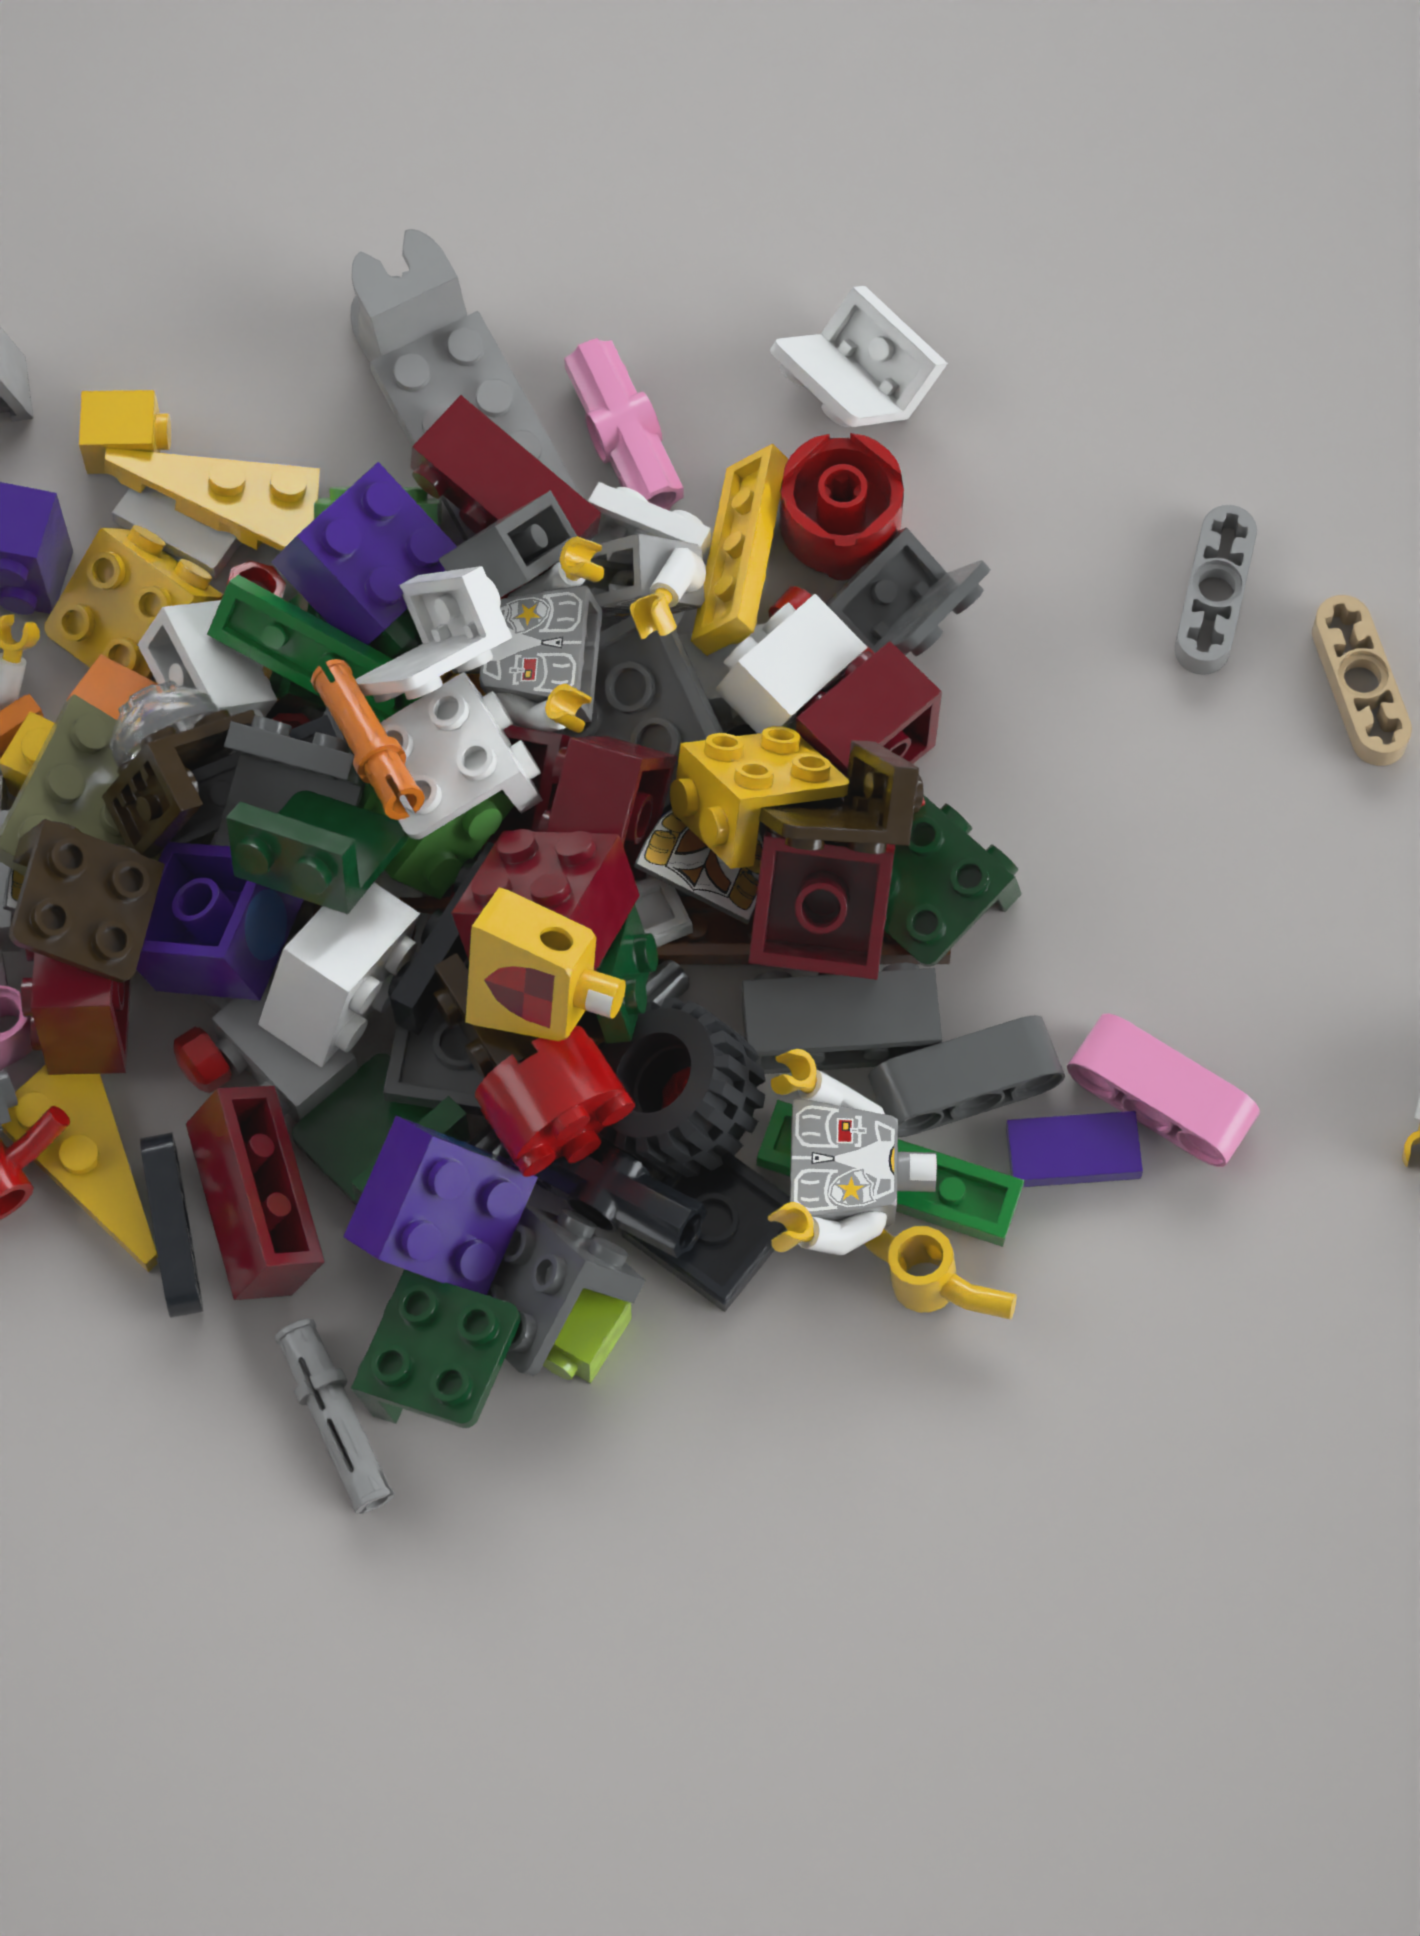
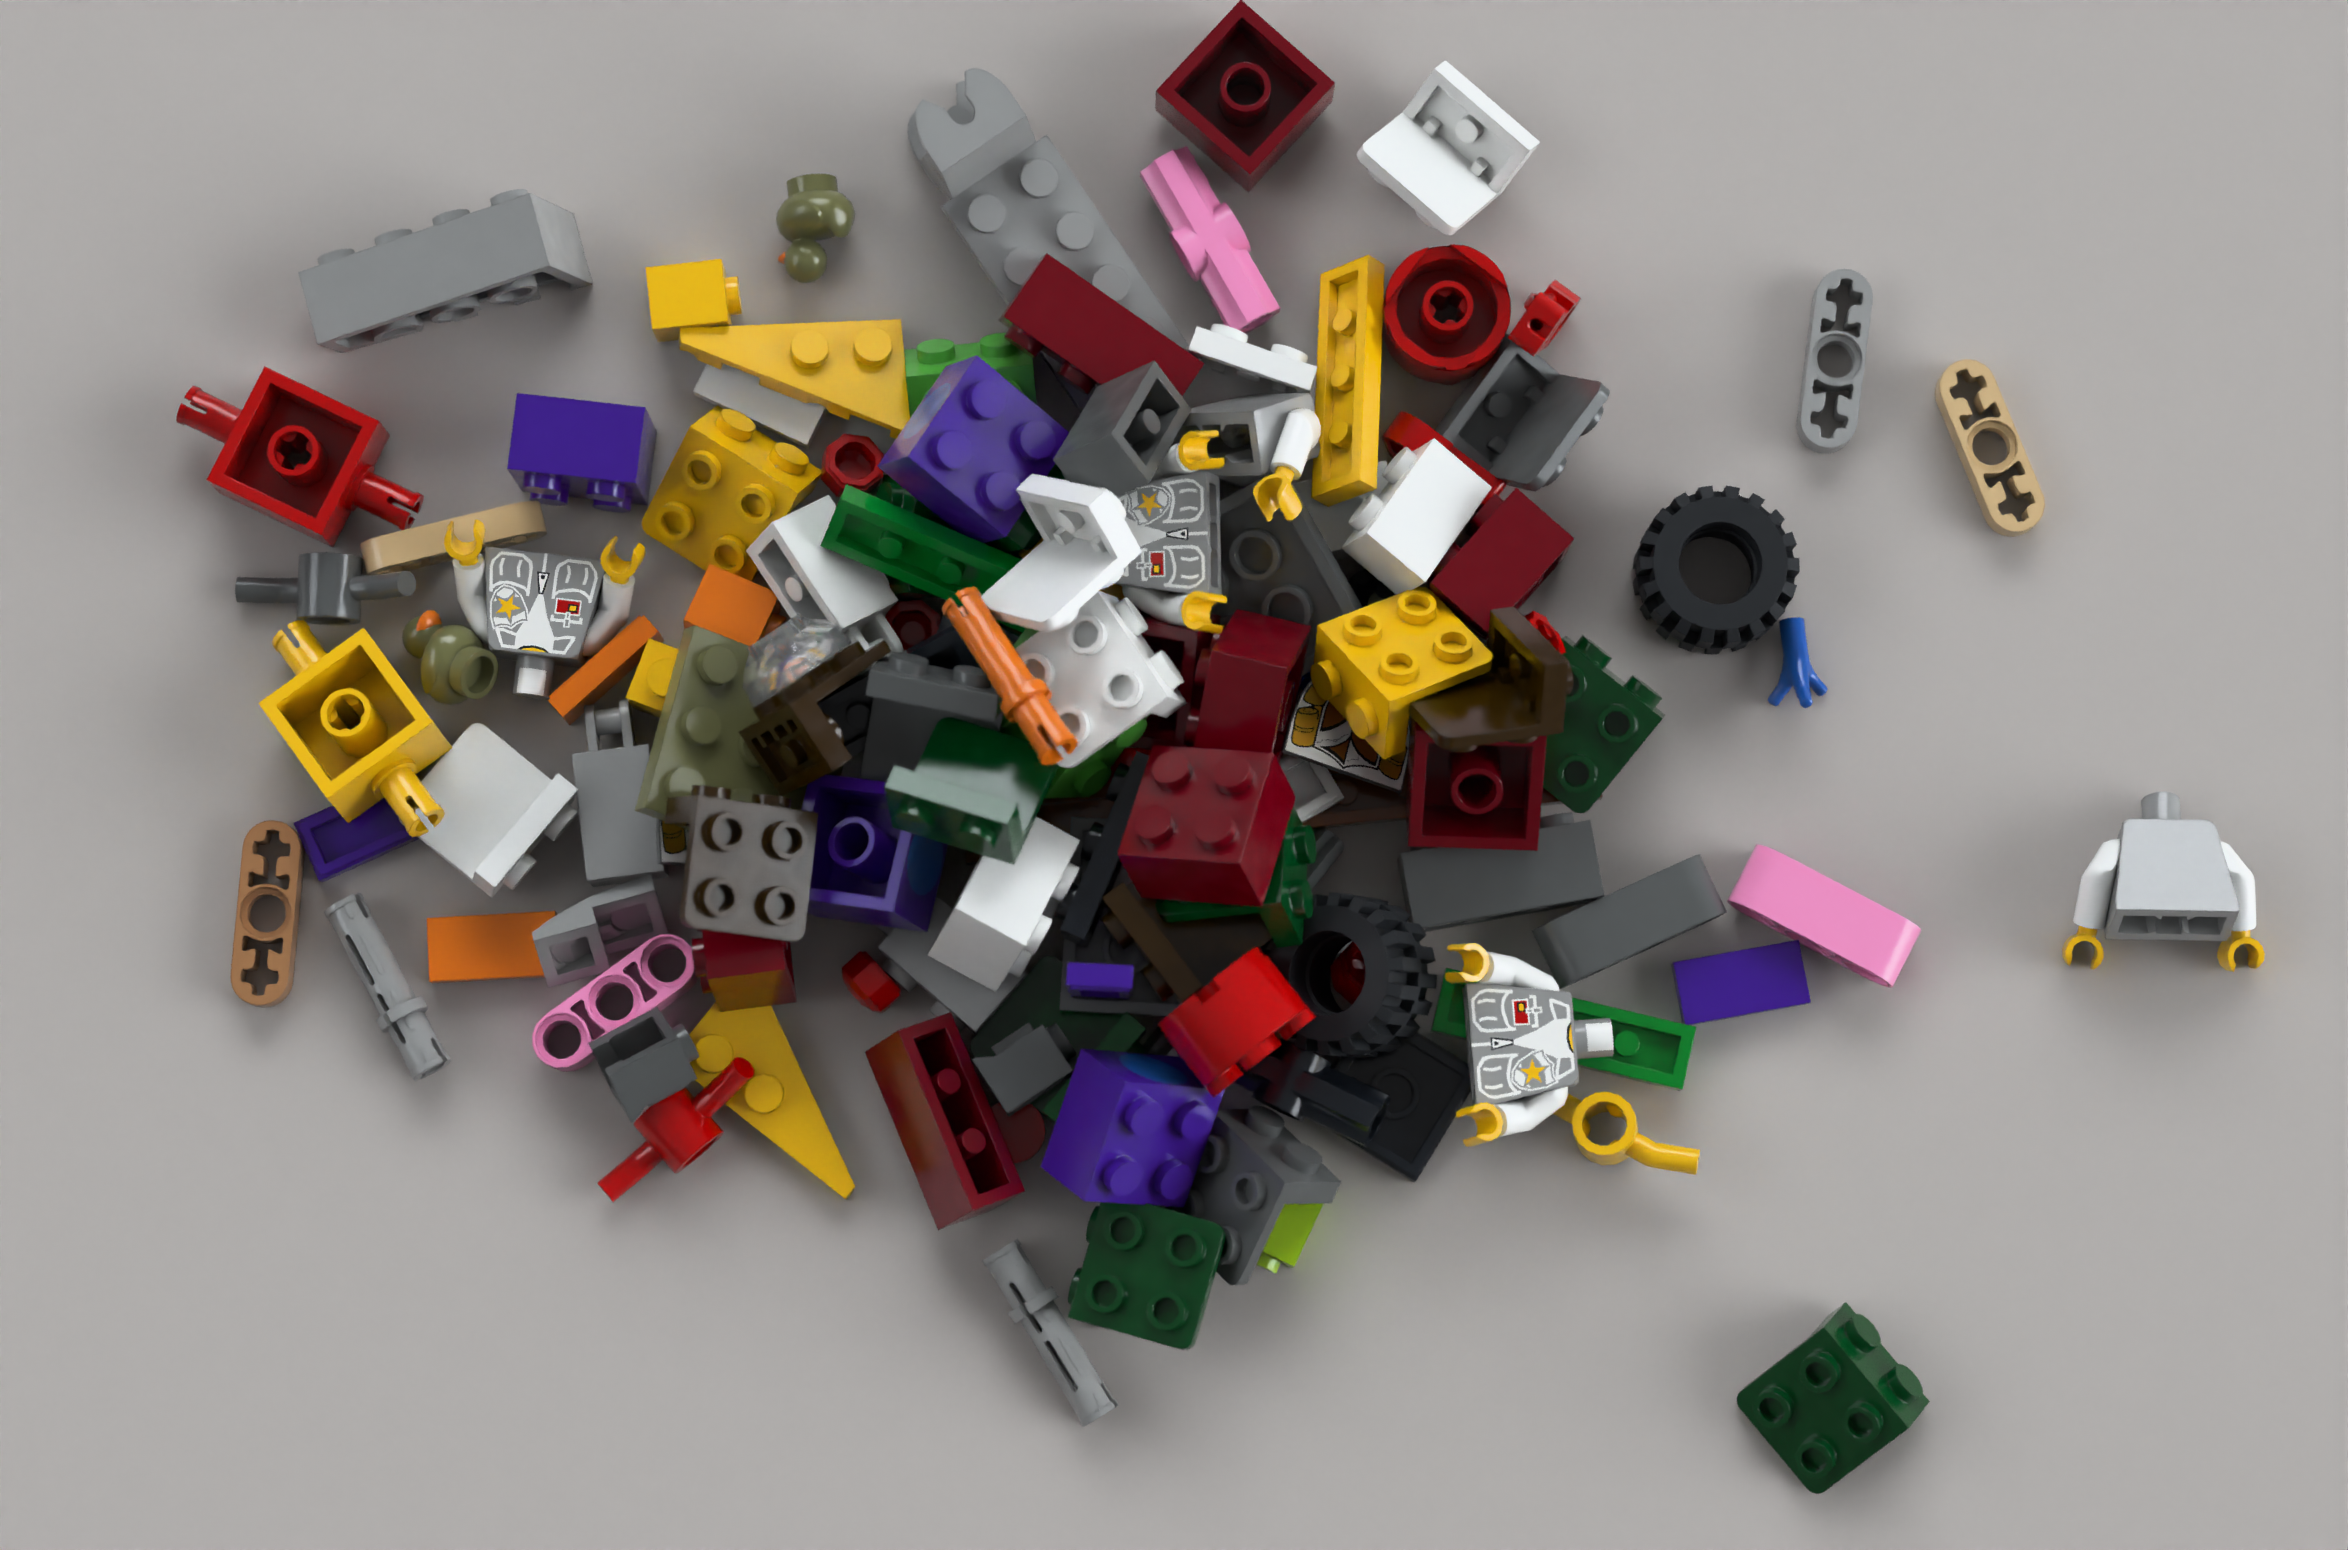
camera: 10 degrees left, 15 degrees up
(171, 1225) = (865, 1156): black beam -> none
(246, 372) = (810, 215): none -> olive animal
(331, 1214) = (1022, 1131): none -> red tile
(339, 1145) = (1026, 1065): none -> dark grey window
(423, 1049) = (1100, 980): none -> dark purple tile
(534, 971) = (1211, 914): yellow torso -> none
(671, 300) = (1244, 95): none -> dark red brick
(936, 513) = (1543, 317): none -> red piece
(1091, 712) = (1749, 529): none -> black tyre
(1131, 1562) = (1833, 1400): none -> dark green bracket
(1155, 857) = (1796, 665): none -> blue bar

